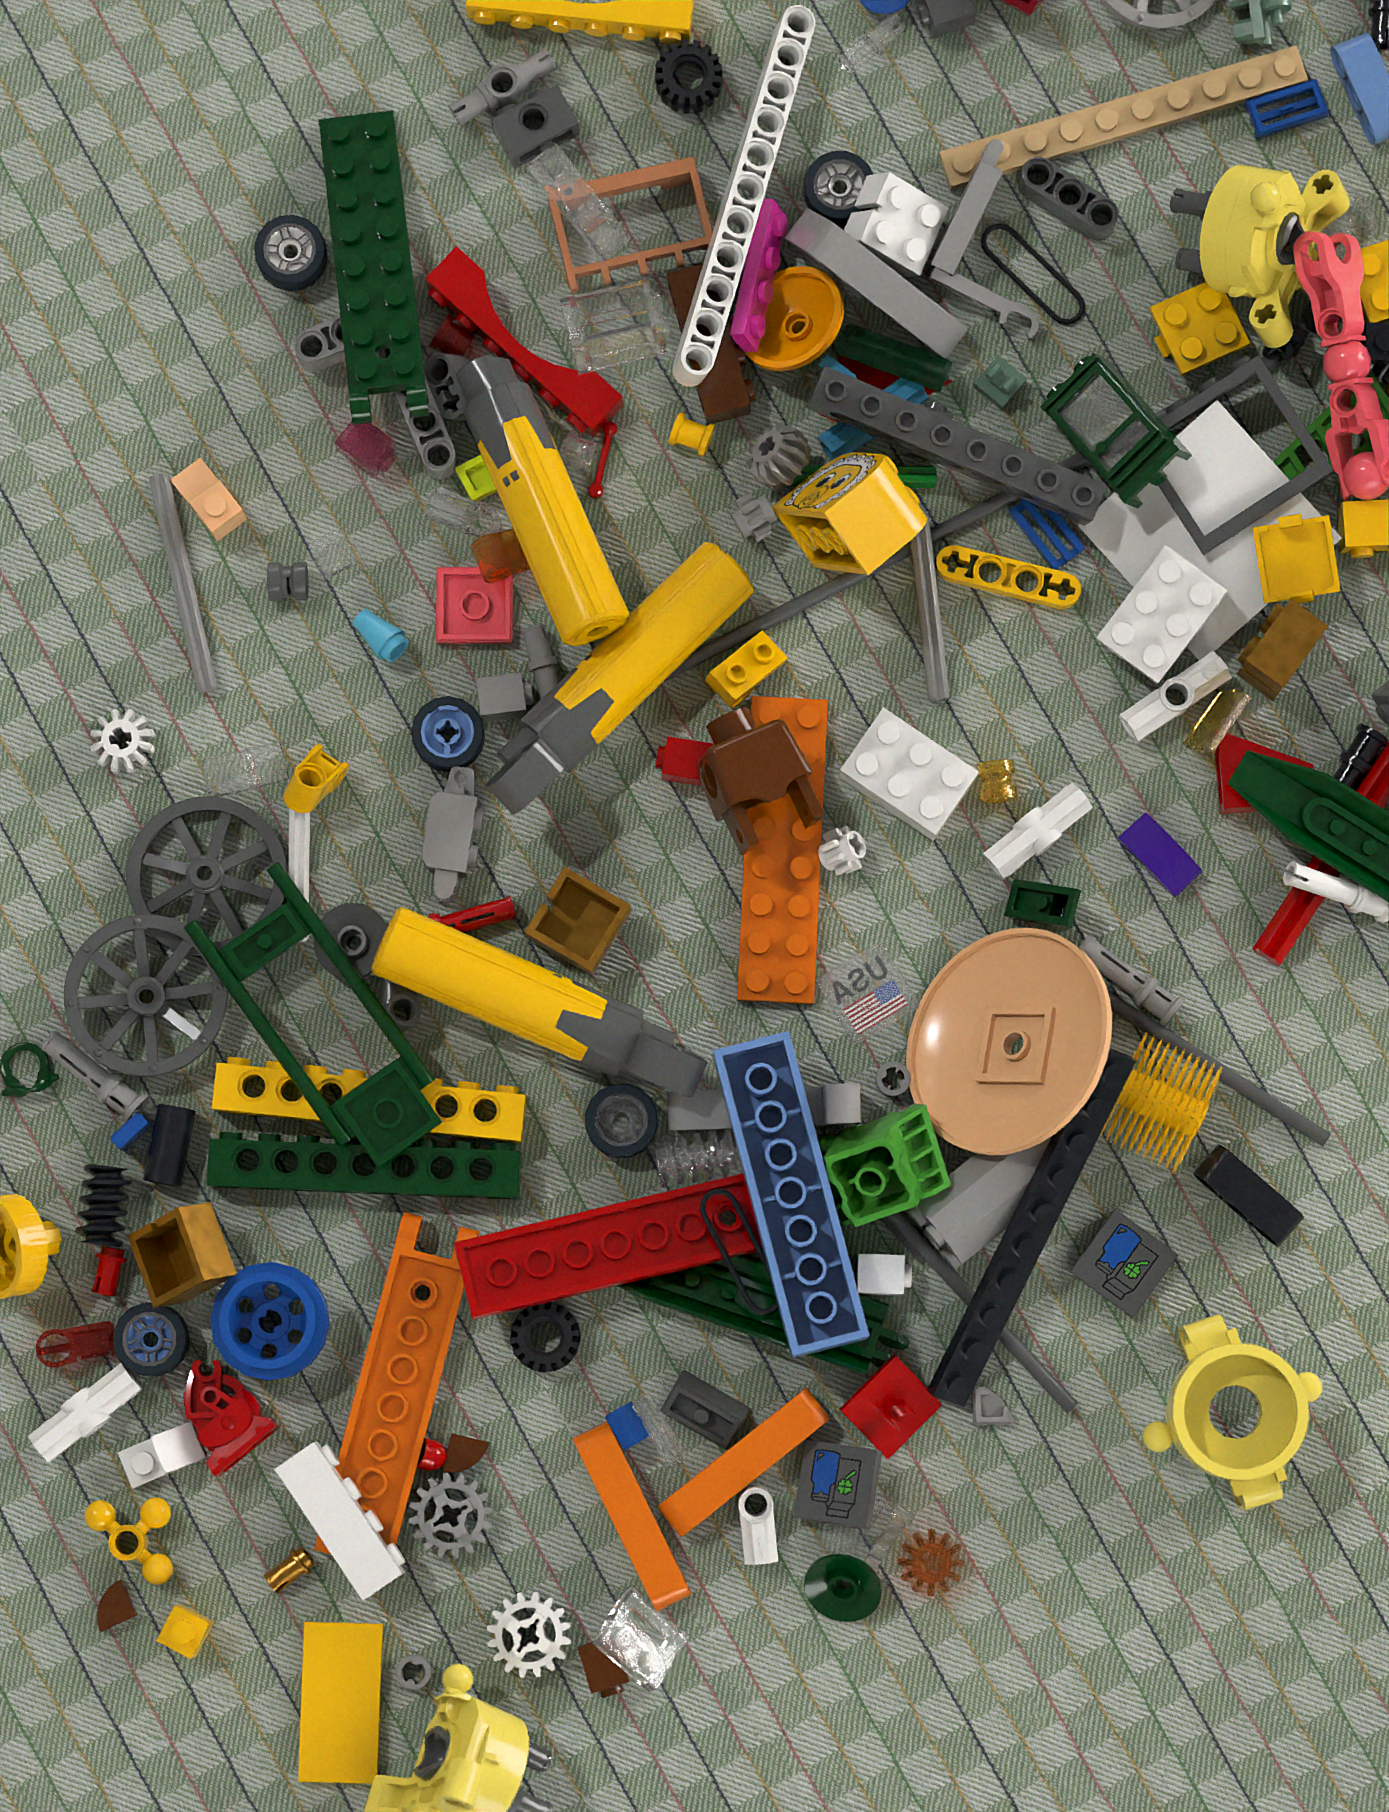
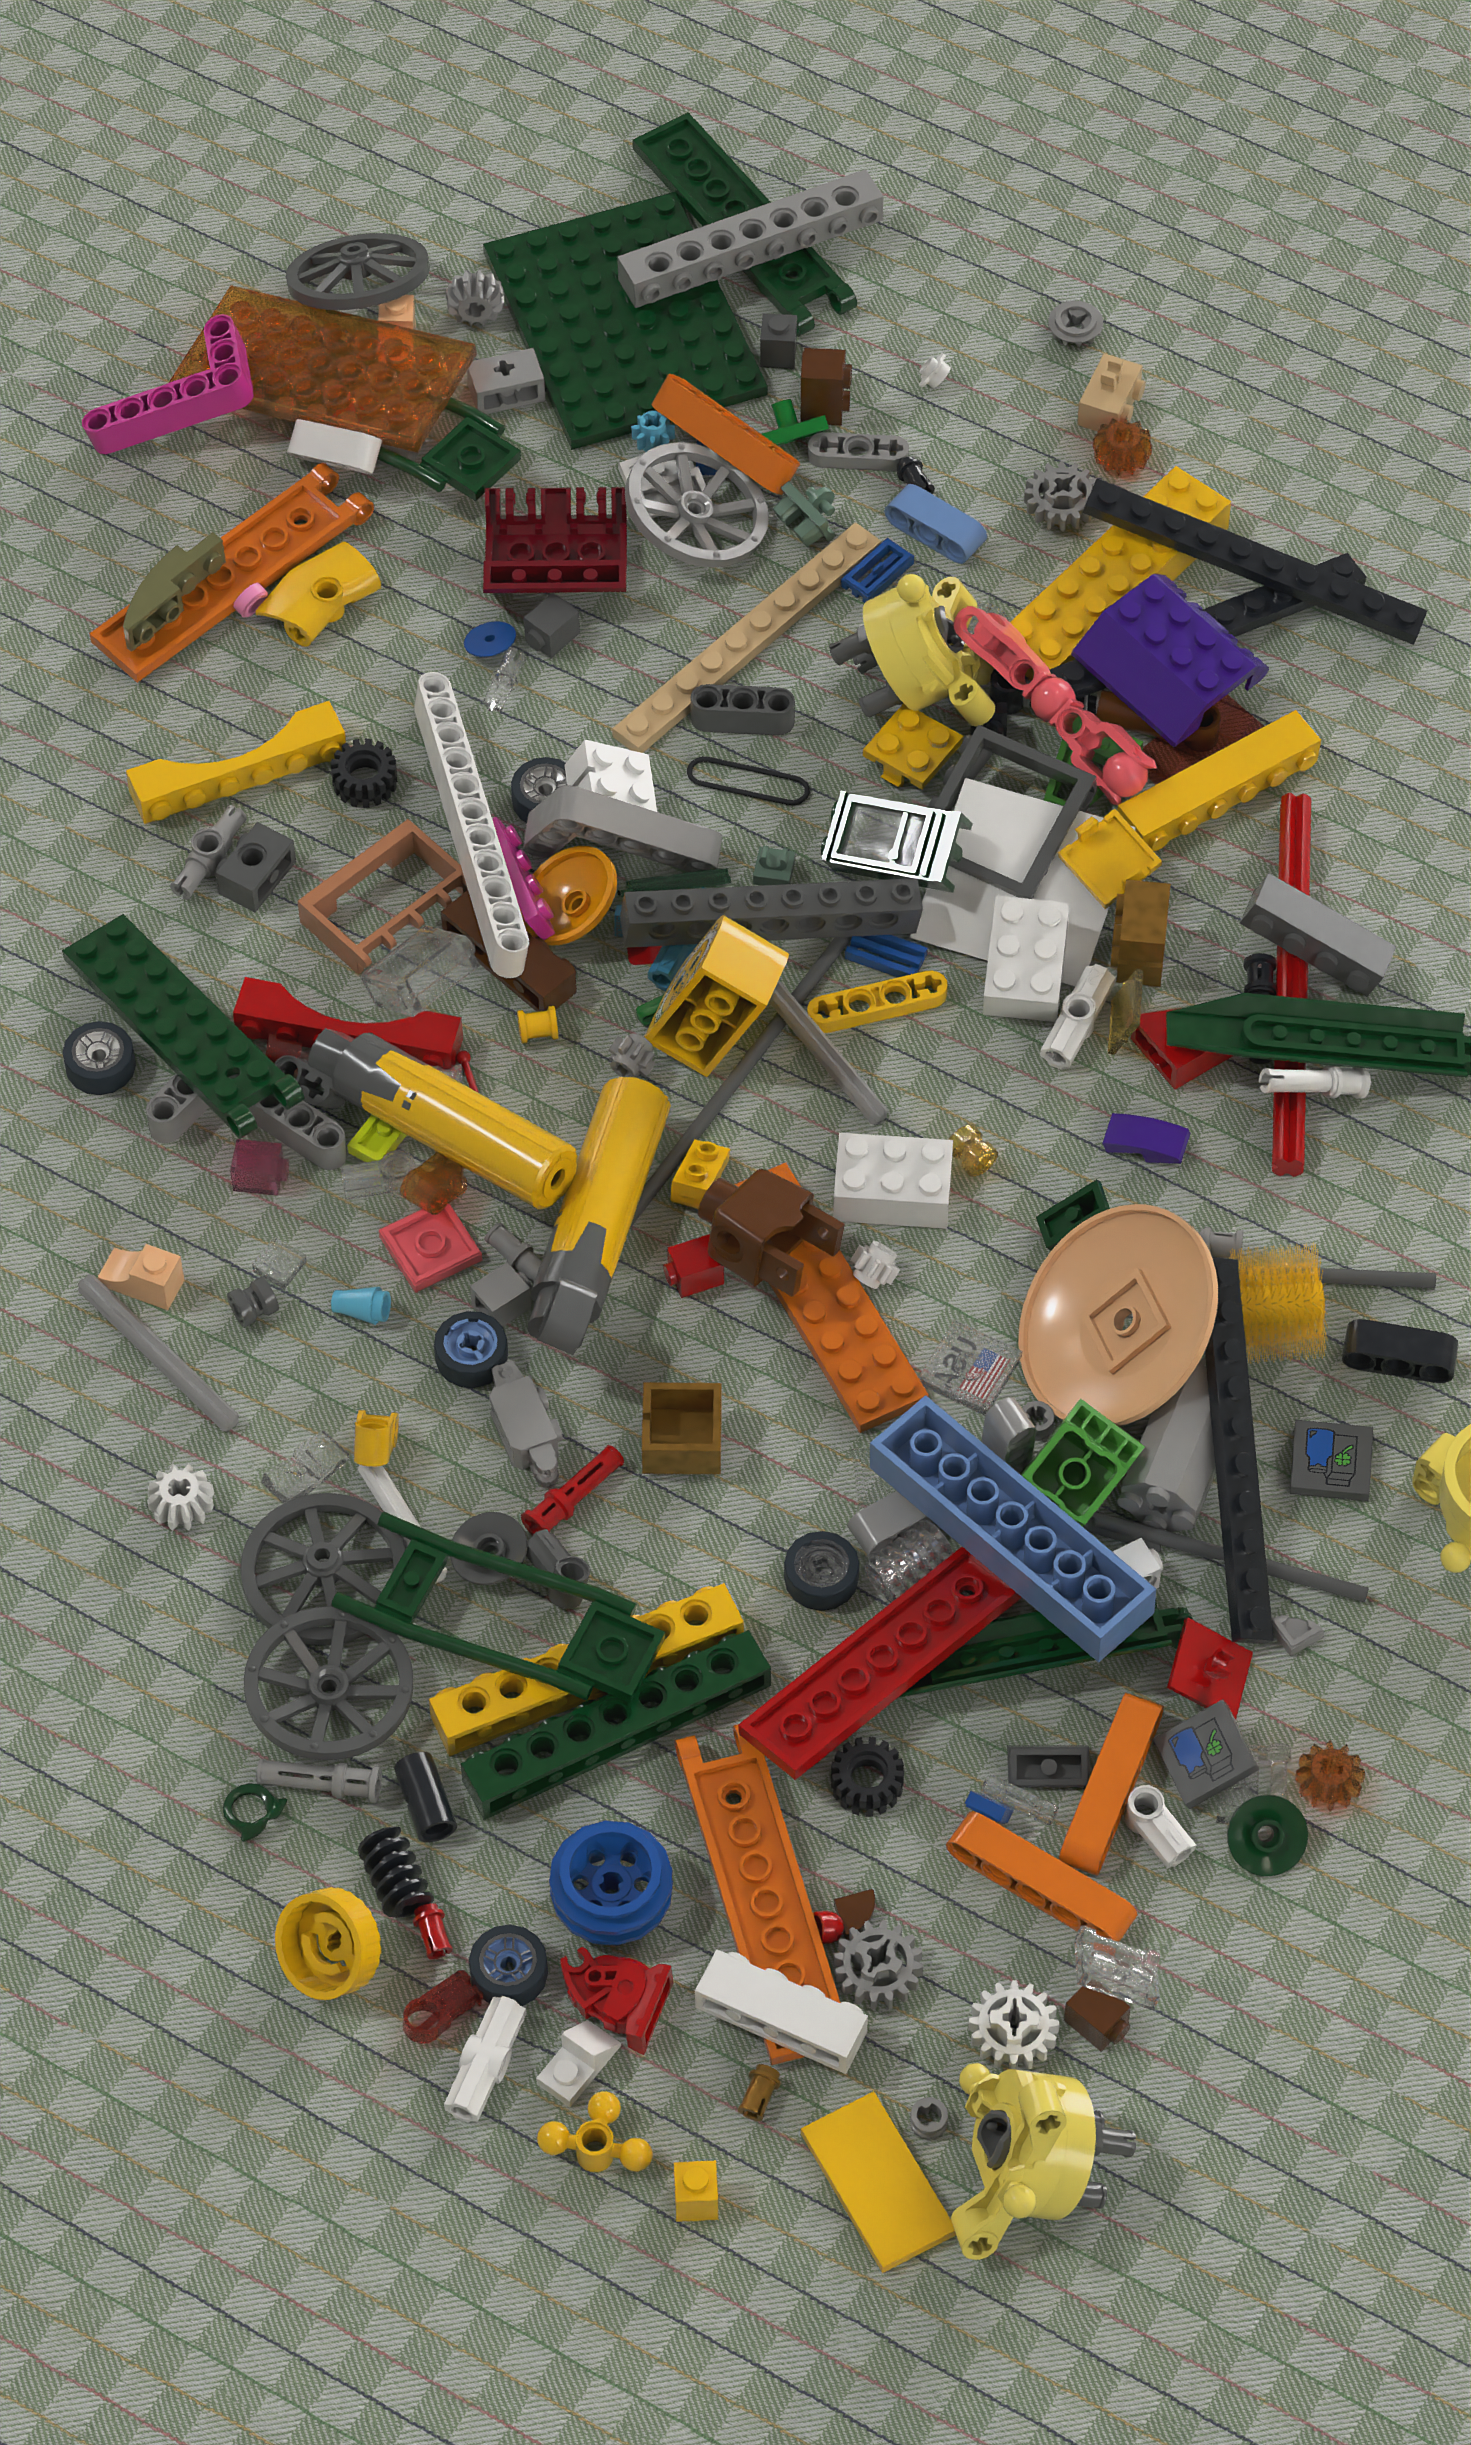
camera: 30 degrees left, 25 degrees down
(115, 1606) = (616, 2213): reddish brown tile -> none
(130, 1131) = (383, 1803): blue tile -> none
(182, 1254) = (501, 1874): pearl gold piece -> none
(532, 1002) = (686, 1501): yellow piece -> none
(578, 203) = (334, 892): clear slope -> none
(723, 1252) = (943, 1588): black piece -> none
(779, 456) = (624, 999): light grey gear -> none
(958, 234) = (670, 775): light grey hinge -> none
(1037, 831) = (1031, 1170): white piece -> none

